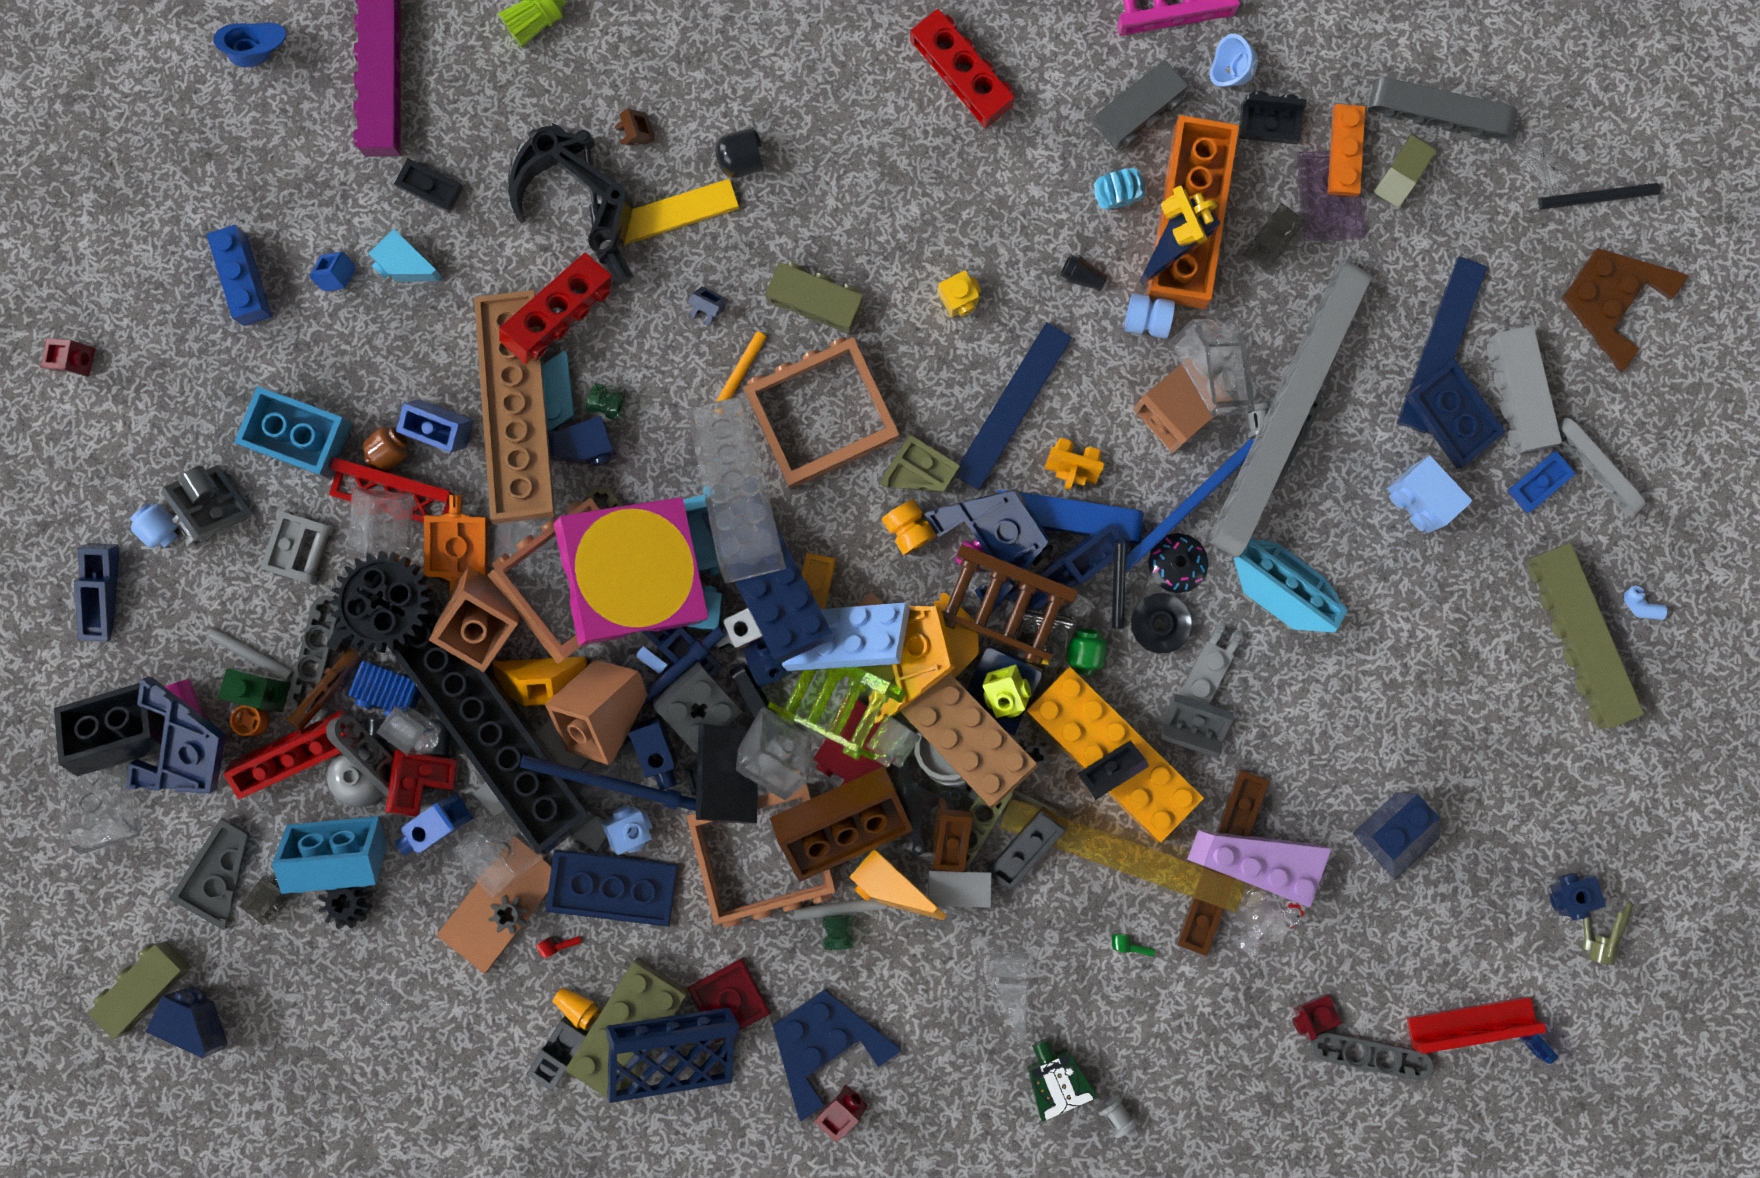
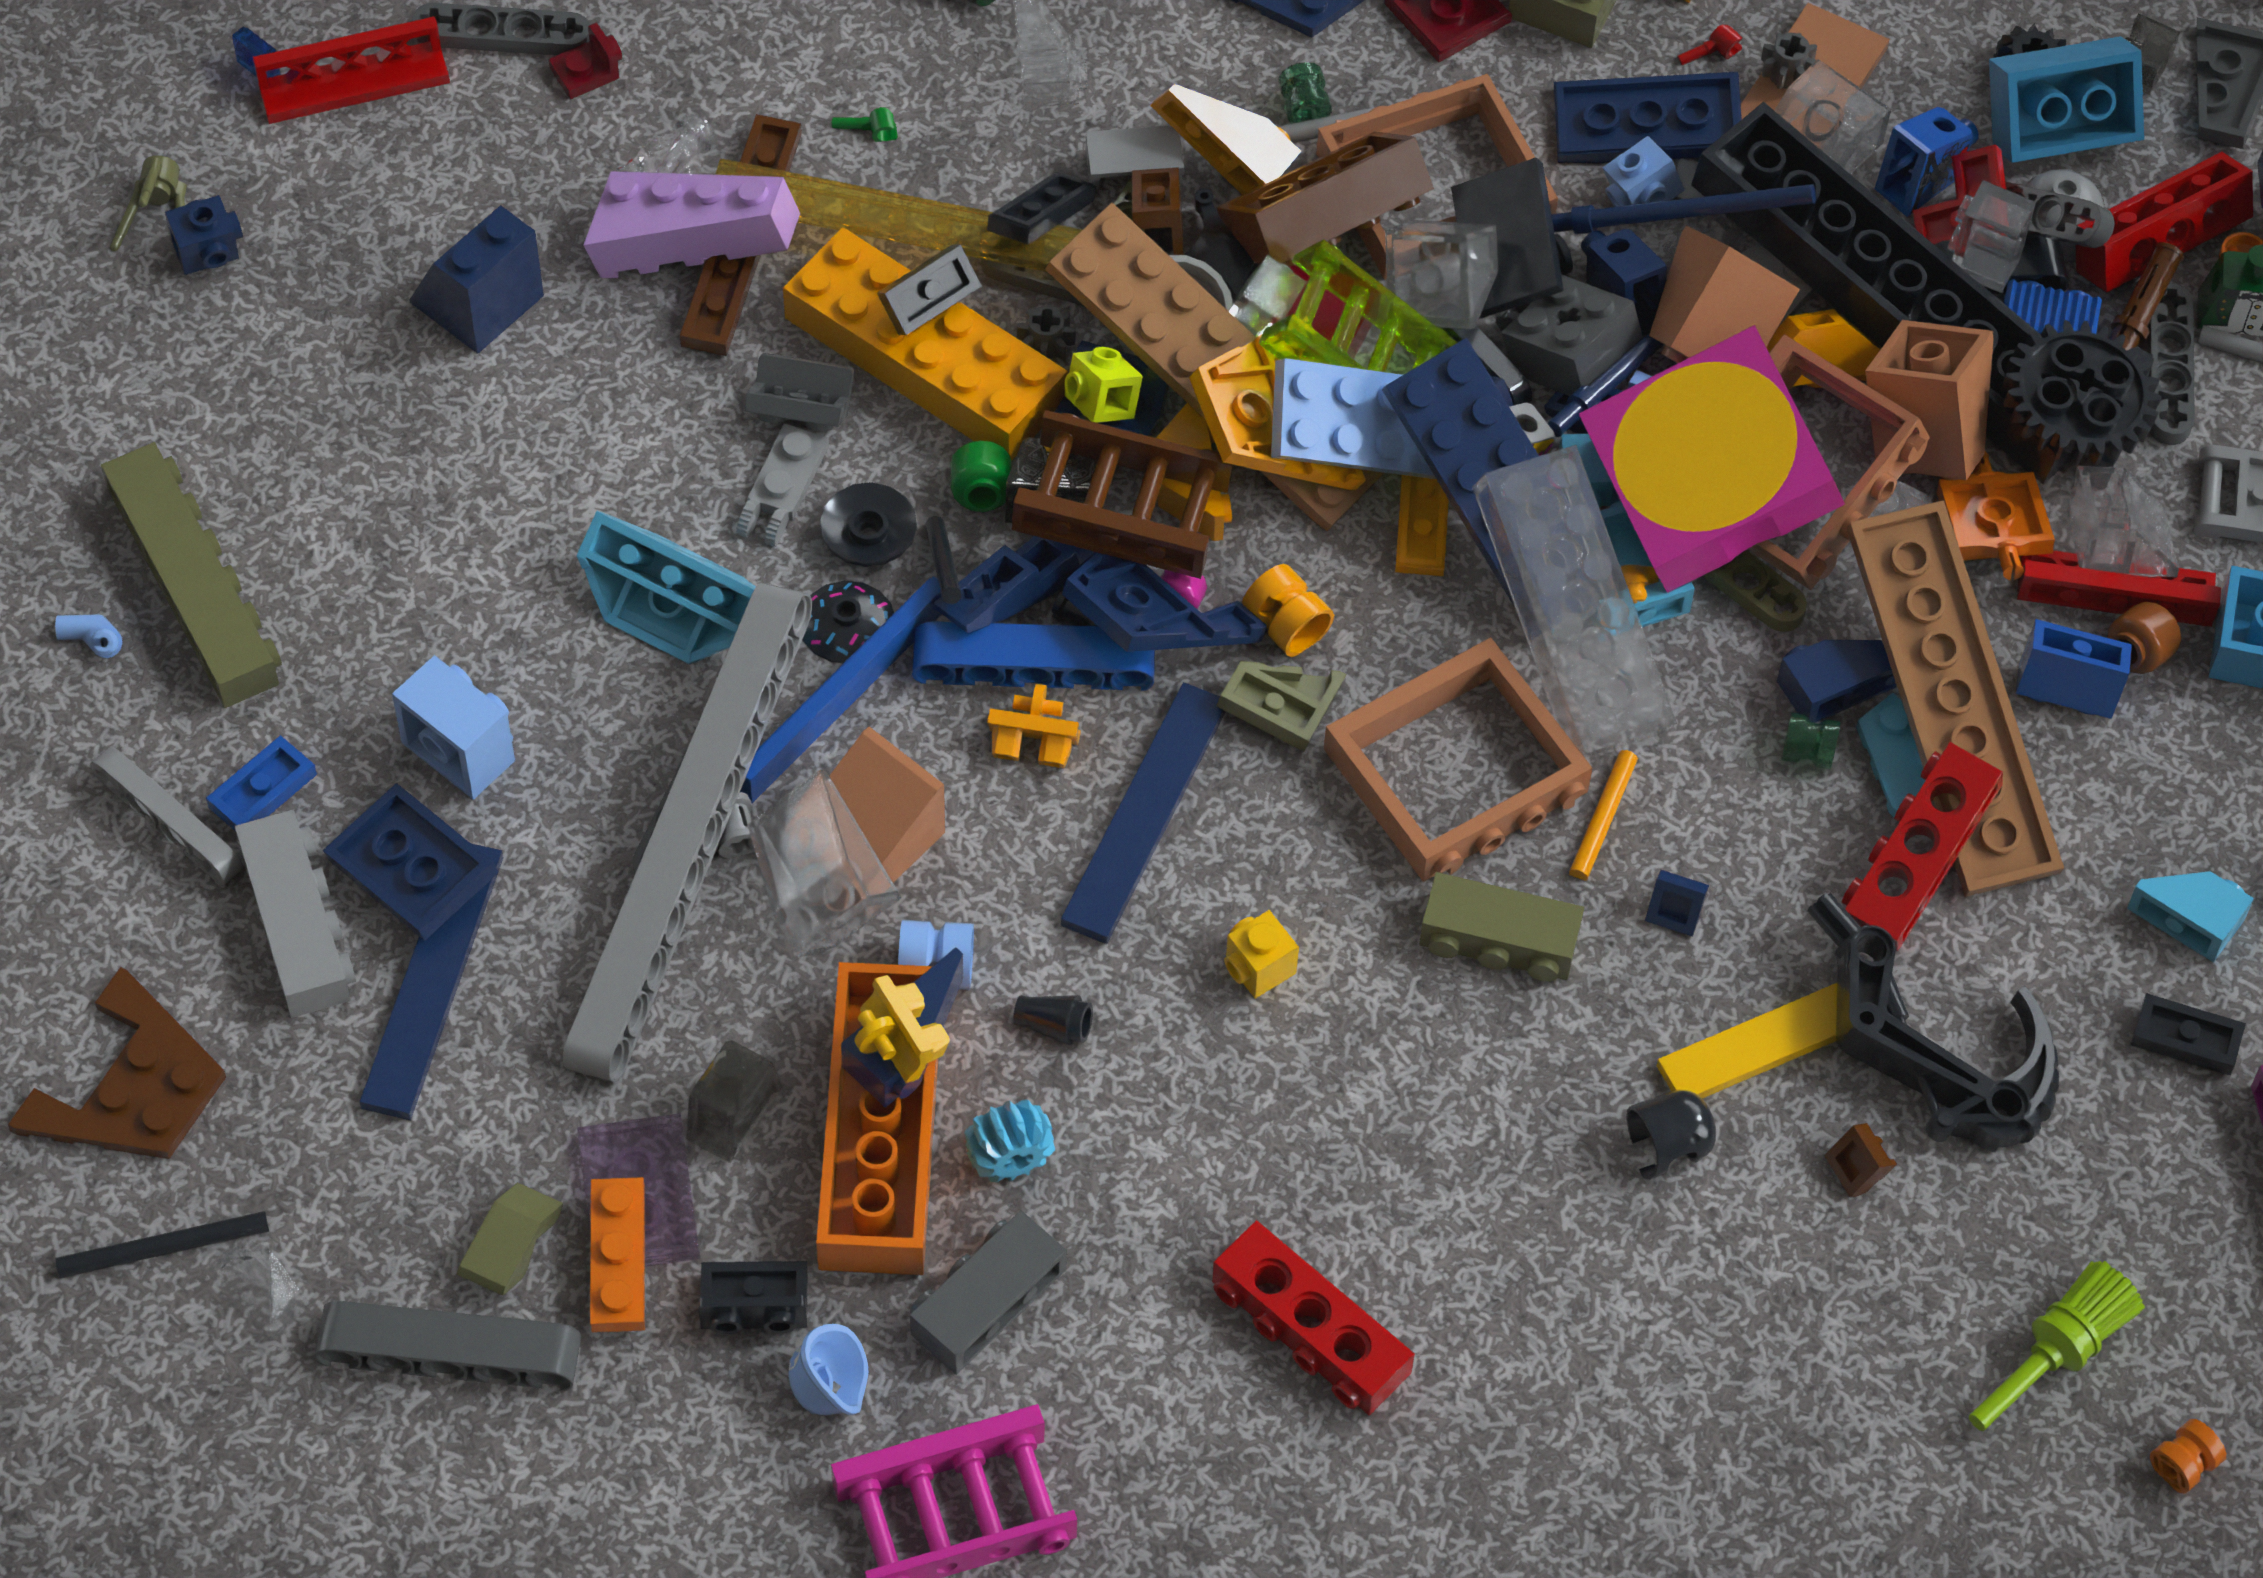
camera: 170 degrees right, 25 degrees down
(695, 509) = (1637, 578): none -> light orange arm

